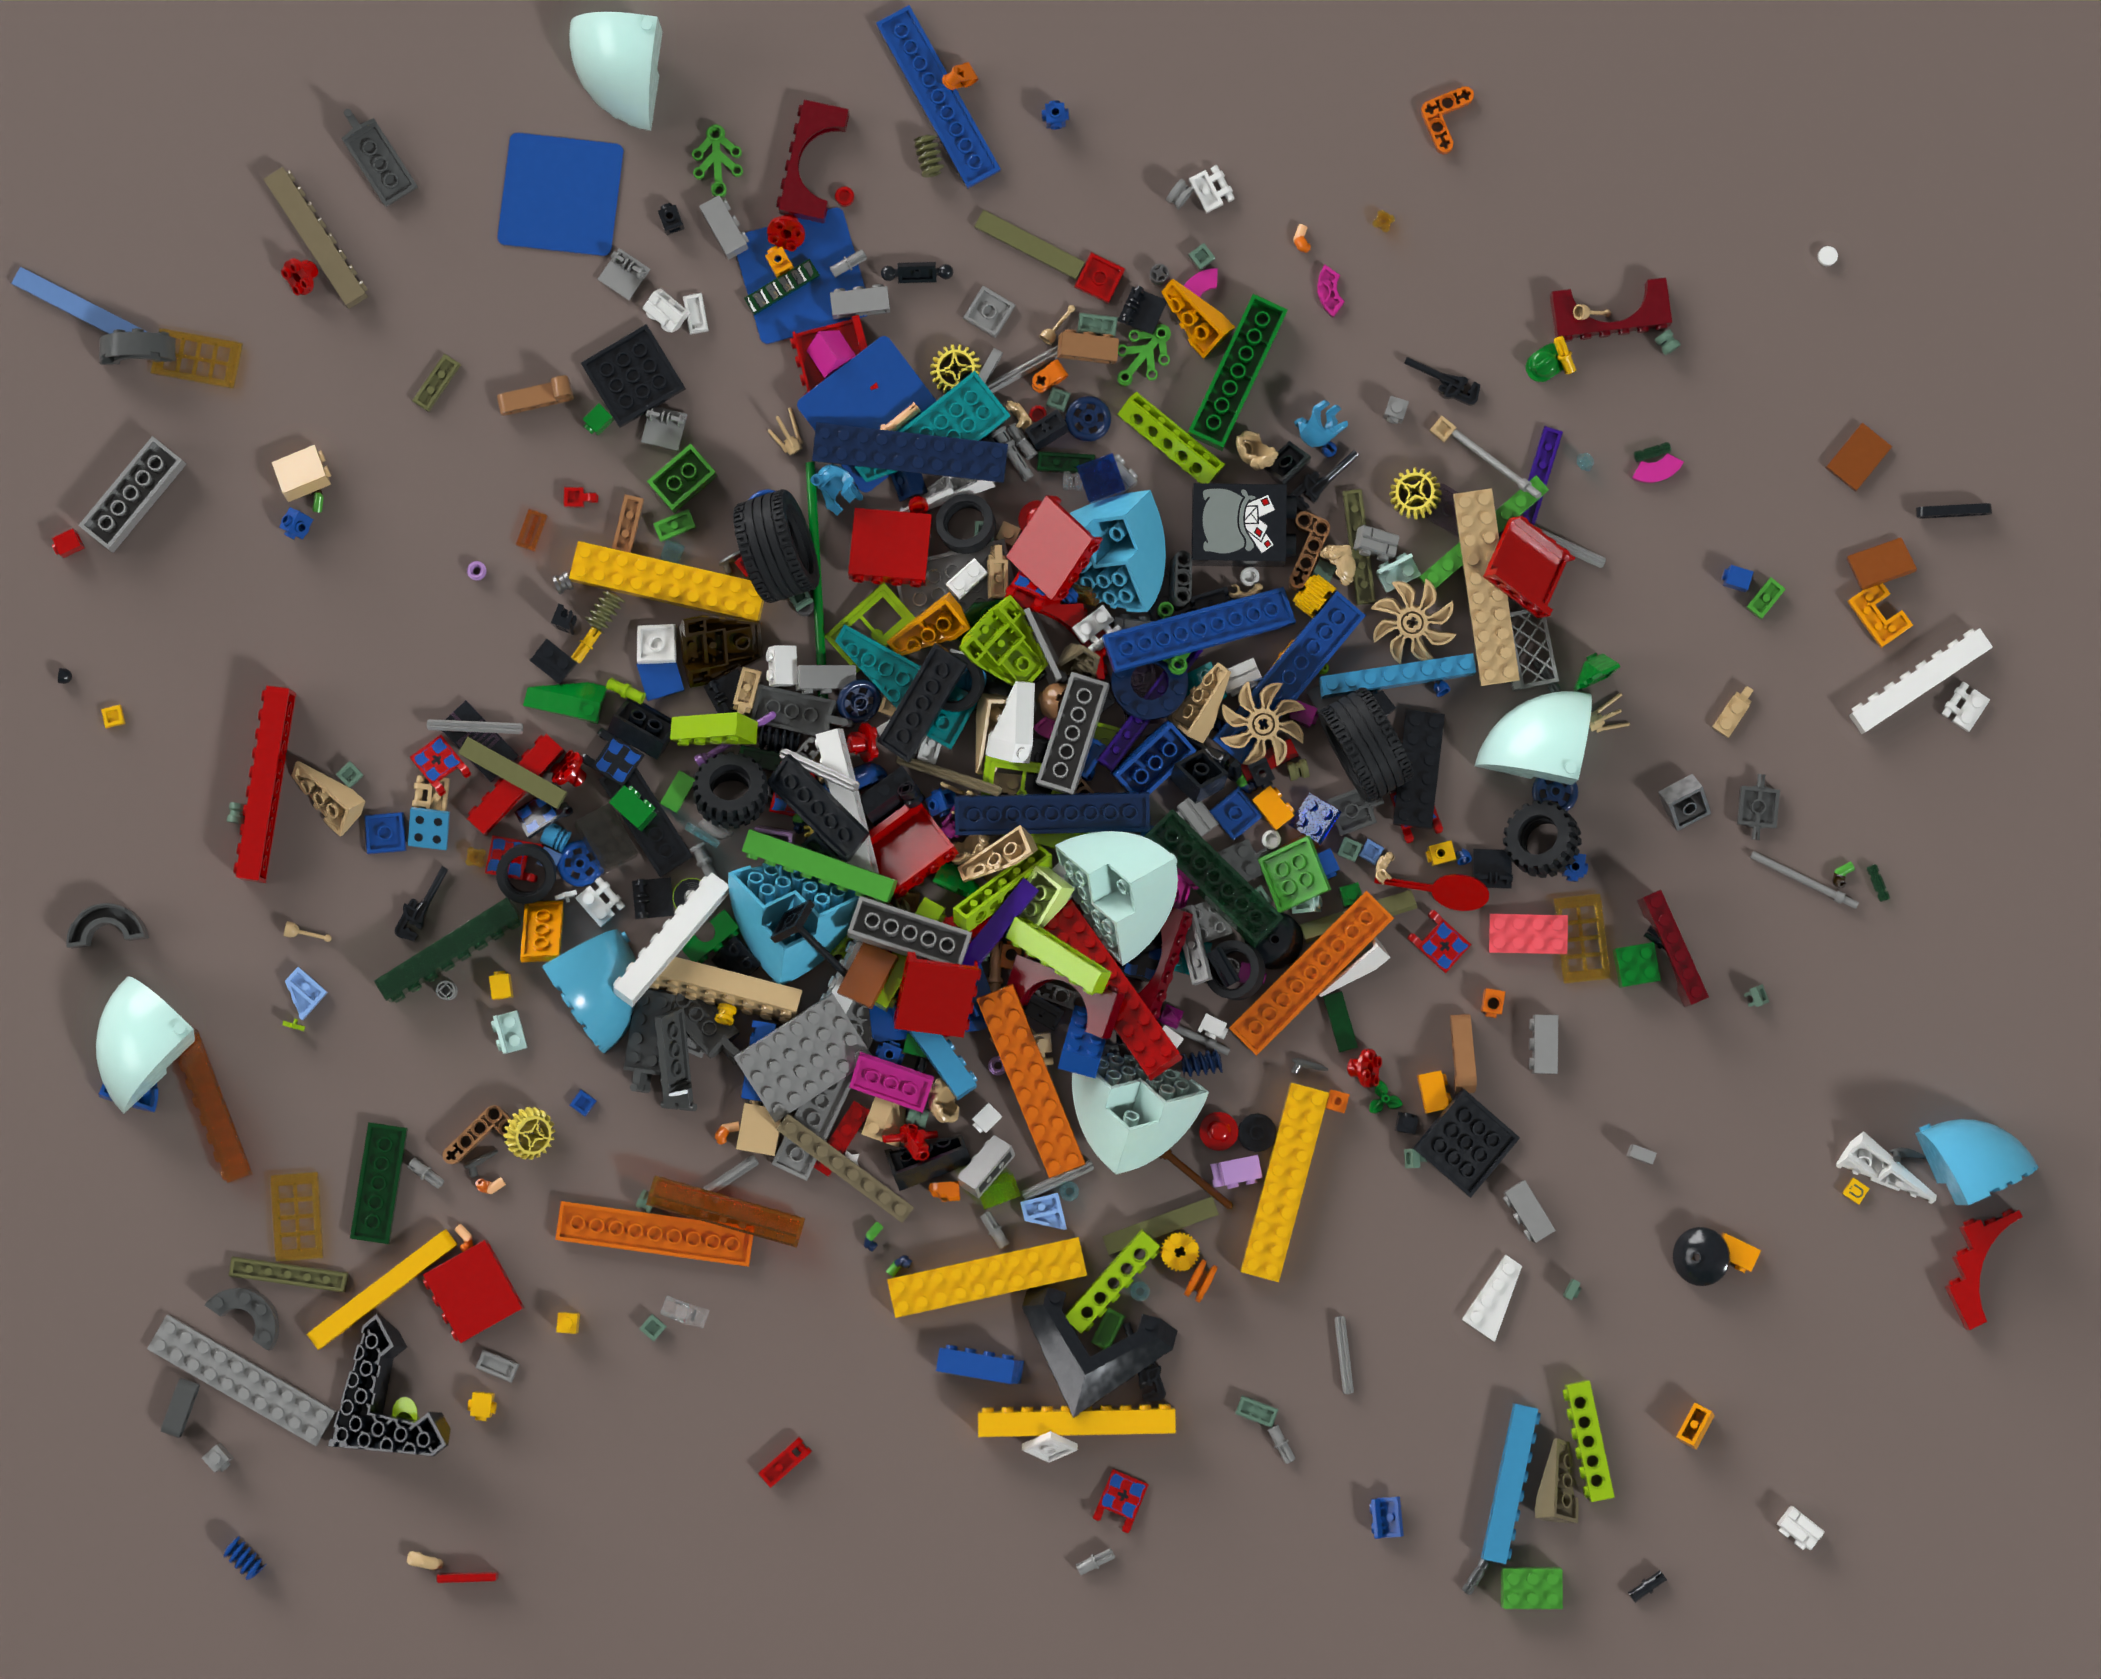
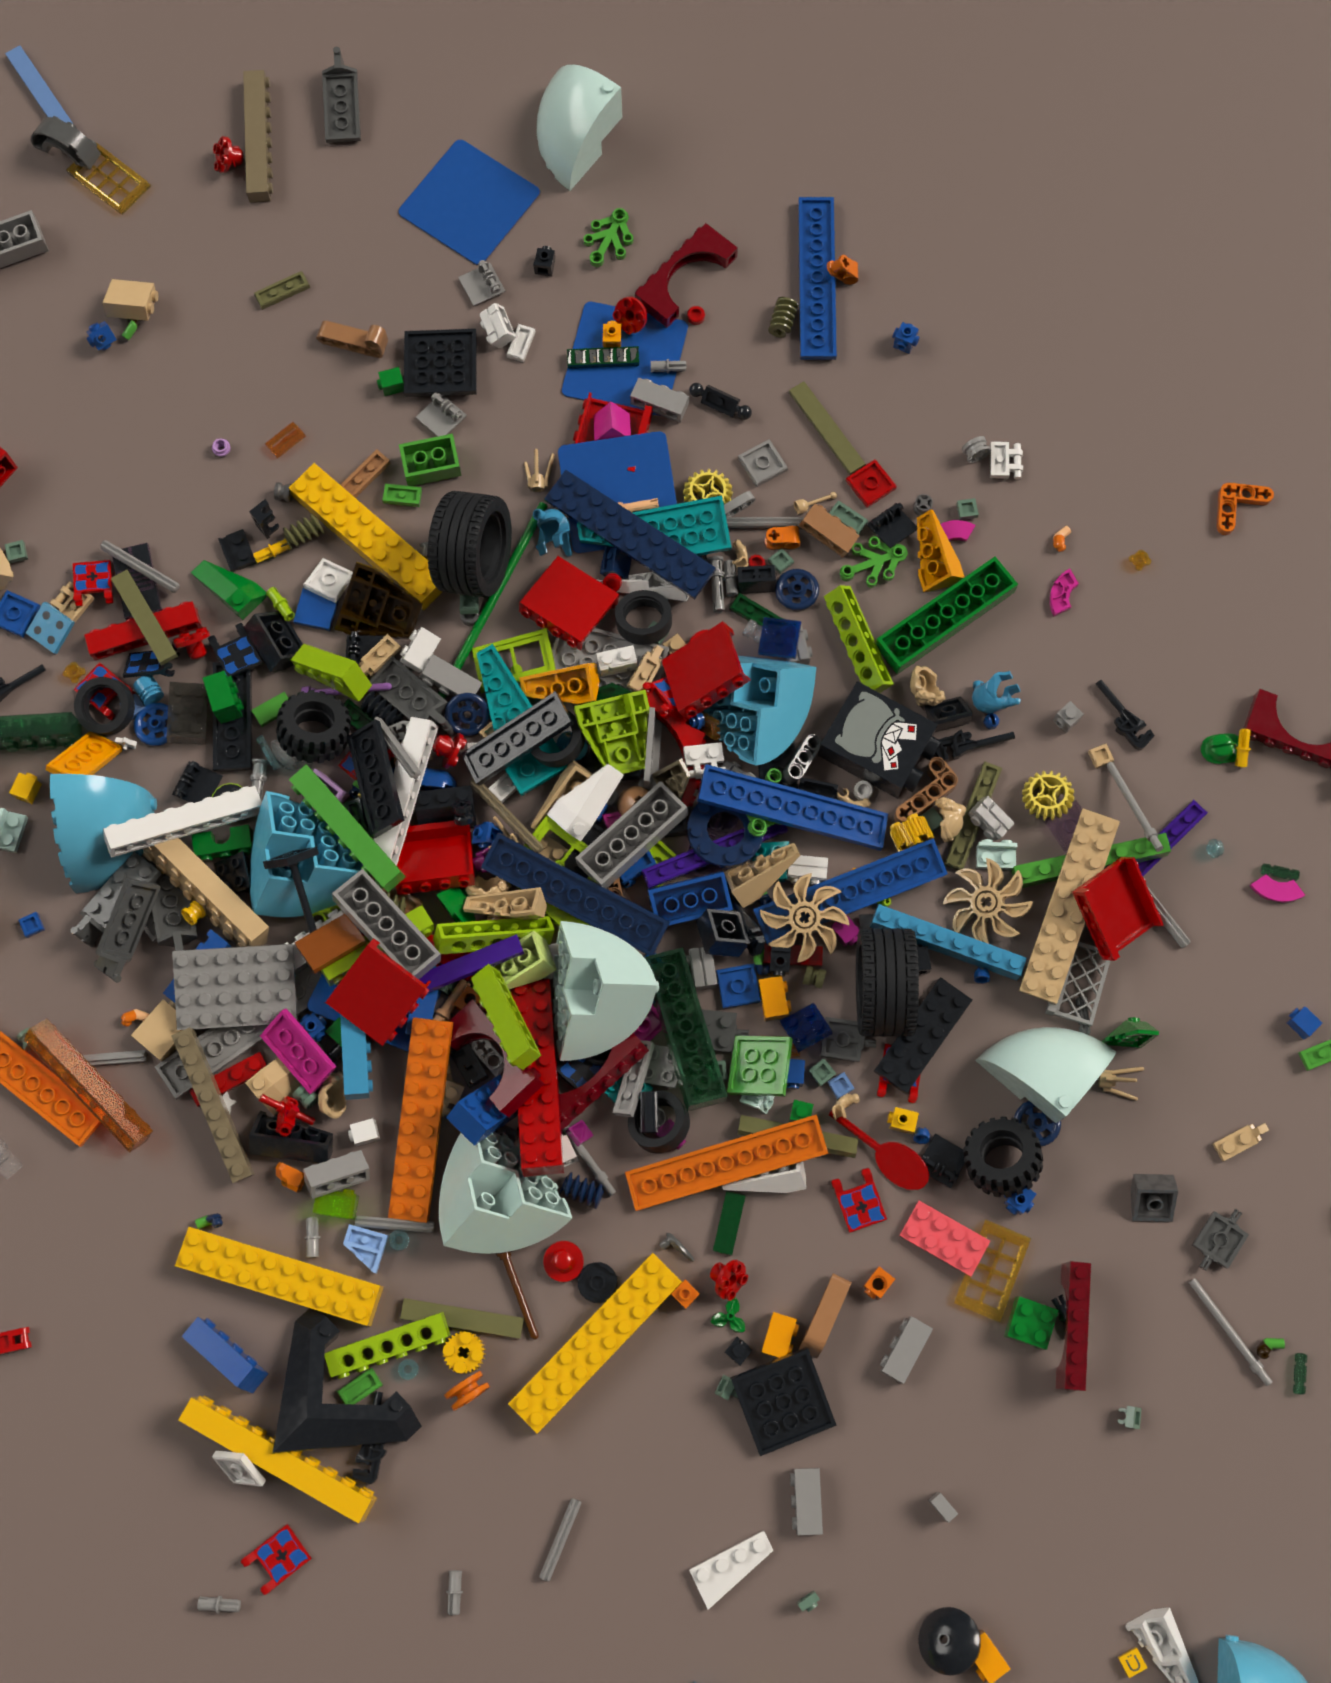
camera: 30 degrees right, 10 degrees down
(575, 497) = (336, 432): red plate -> none
(596, 906) = (146, 764): white plate -> none
(672, 552) = (388, 515): clear light blue tile -> none
(724, 226) = (584, 287): light grey brick -> none
(870, 1236) = (200, 1180): arm -> none
(991, 1066) = (396, 1089): lavender plate -> none
(1213, 1027) = (611, 1163): white brick -> none
(1236, 1171) = (558, 1307): lavender hinge -> none
(1256, 1411) = (449, 1546): sand green plate -> none
(1271, 839) = (757, 1025): white tile -> none
(1287, 948) = (714, 1130): black dish -> none
(1582, 312) = (1279, 718): tan hinge -> none
(1905, 1153) = (1200, 1652): dark grey bar -> none

